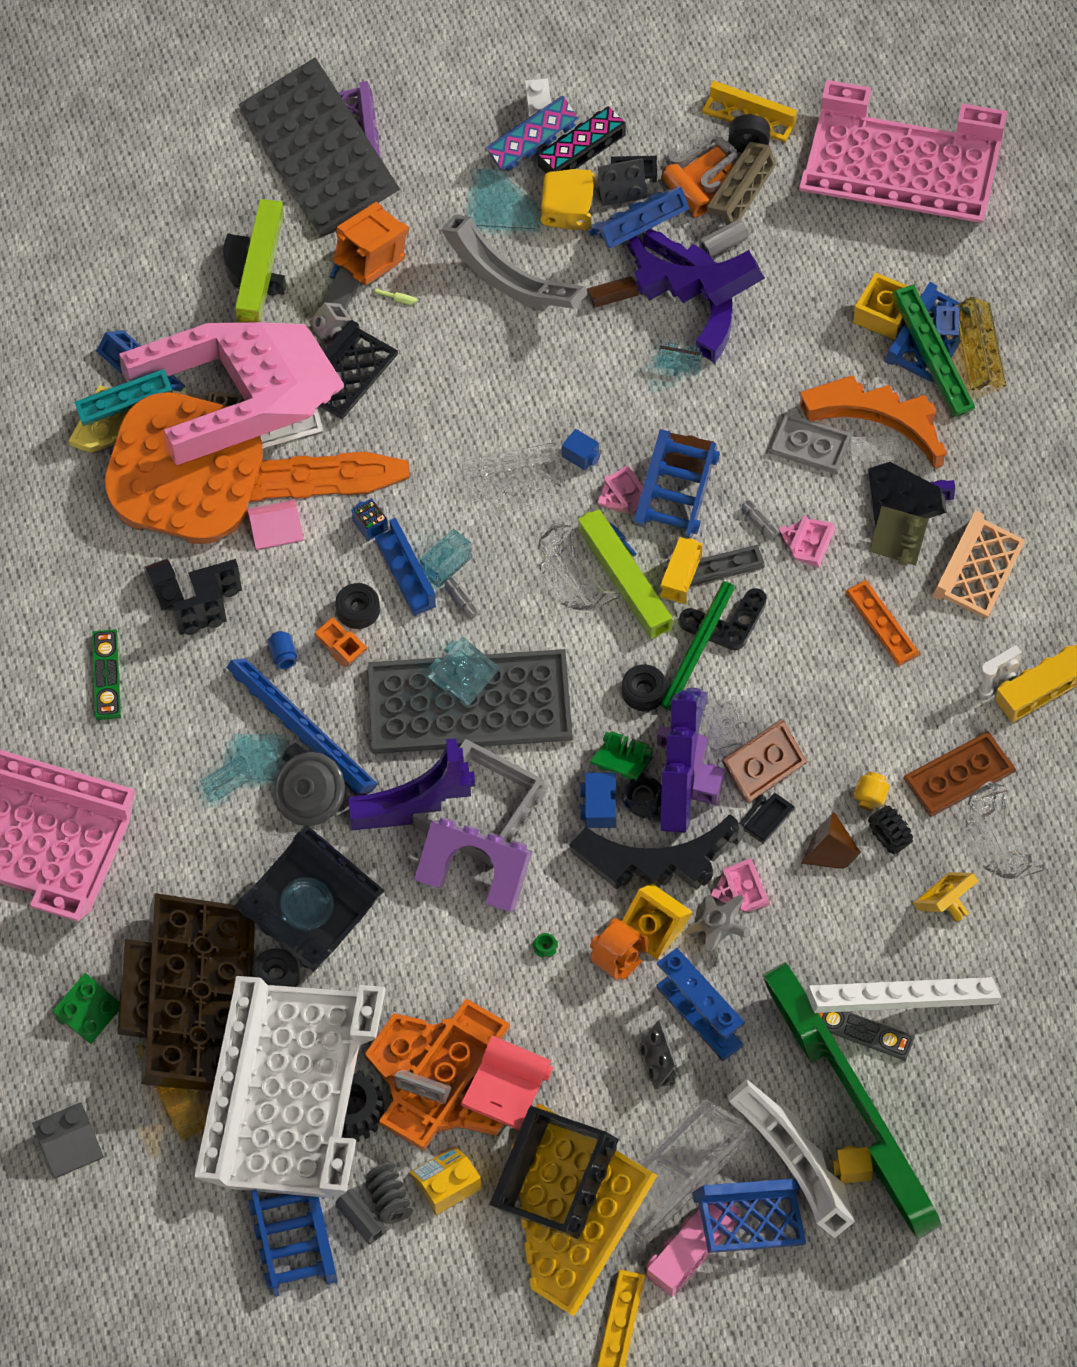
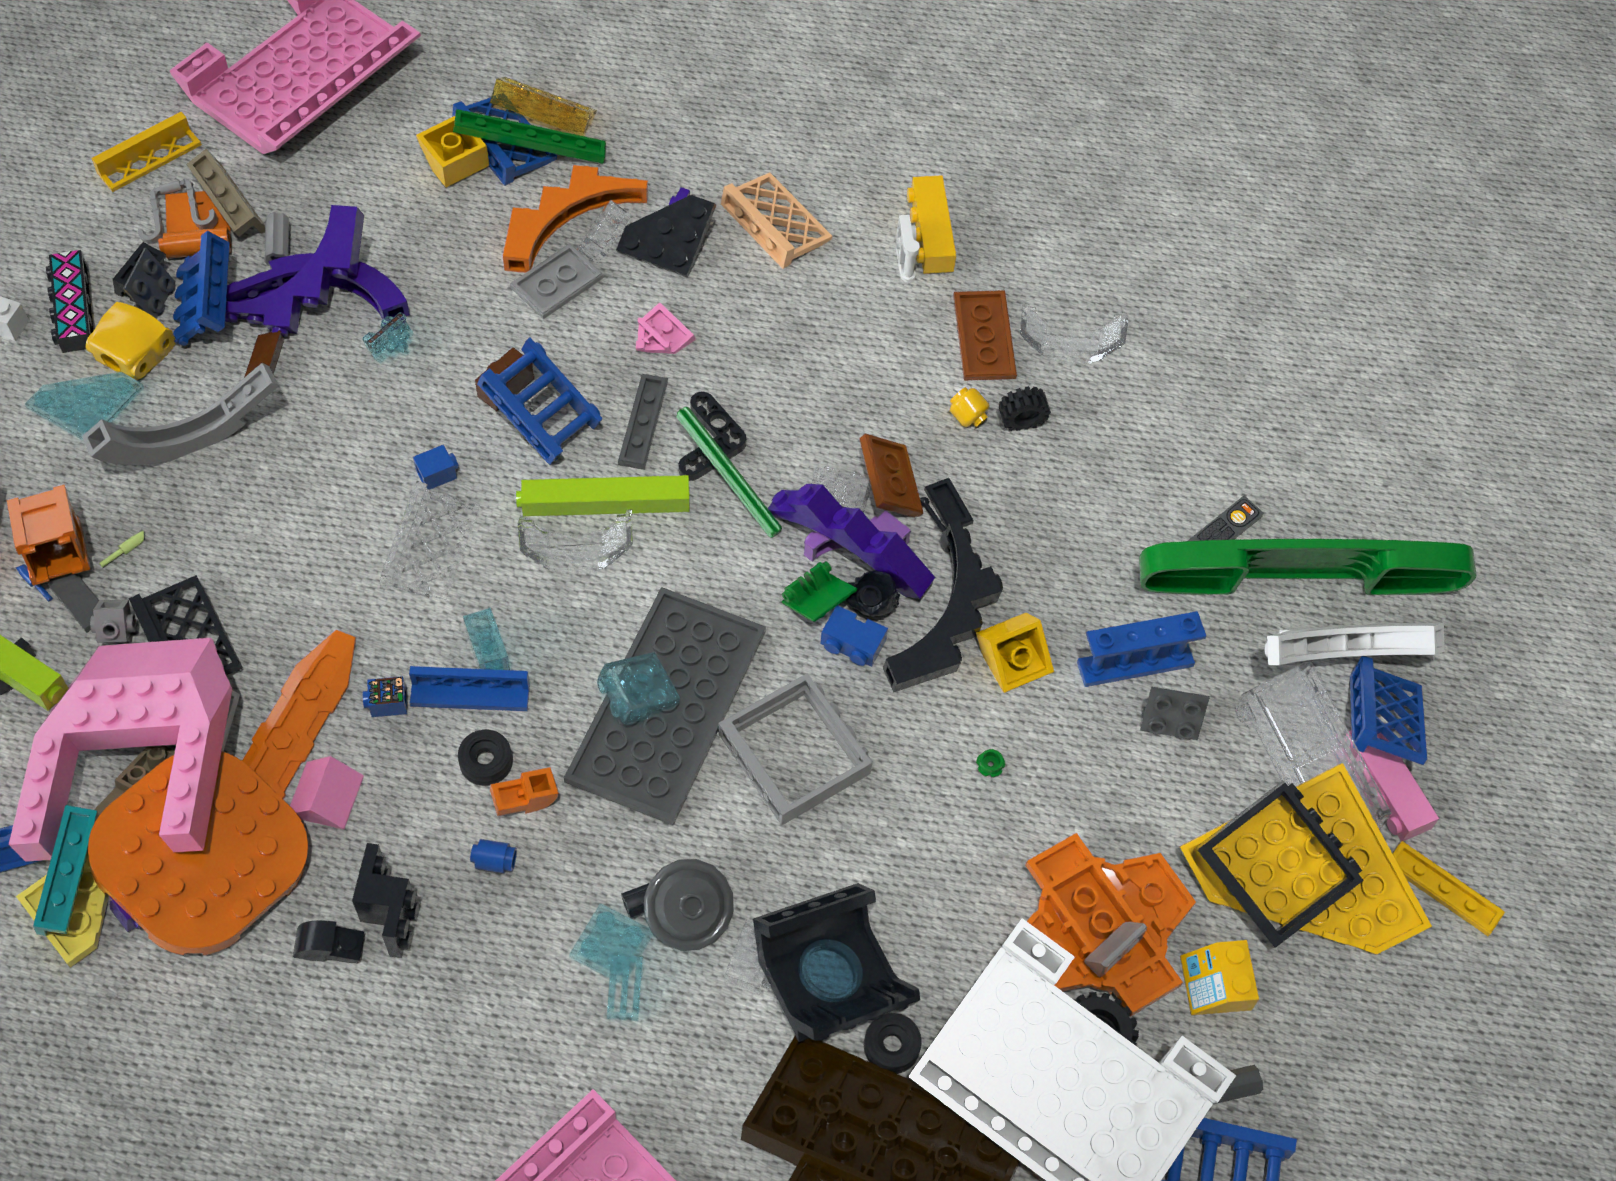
camera: 70 degrees left, 0 degrees up
(106, 674) = (406, 1060): tile -> none
(300, 724) = (588, 883): blue plate -> none
(386, 1193) = (1219, 1043): dark grey piece -> none
(423, 794) = (769, 795): dark purple arch -> none
(461, 598) = (536, 655): light grey axle -> none
(507, 1082) = (1149, 864): coral door -> none
(508, 859) = (837, 790): medium lavender arch -> none
(531, 133) = (29, 331): brick -> none
(618, 949) = (1039, 694): orange brick -> none
(621, 491) = (506, 456): bright pink slope -> none
(643, 674) = (745, 526): black tyre -> none
(681, 570) = (637, 444): yellow window -> none
(719, 922) = (1048, 595): light grey animal -> none
(744, 881) = (1013, 561): bright pink slope -> none
(748, 124) = (172, 159): black tyre -> none
(760, 520) = (614, 359): light grey axle -> none
(831, 846) = (1007, 467): reddish brown slope -> none
(853, 1165) = (1359, 604): yellow brick -> none
(882, 623) = (788, 318): orange tile -> none
(899, 535) = (709, 257): olive hinge -> none
(903, 995) = (1219, 475): white plate -> none
(946, 318) = (501, 108): blue bracket -> none
(946, 895) = (1113, 397): yellow tile -> none

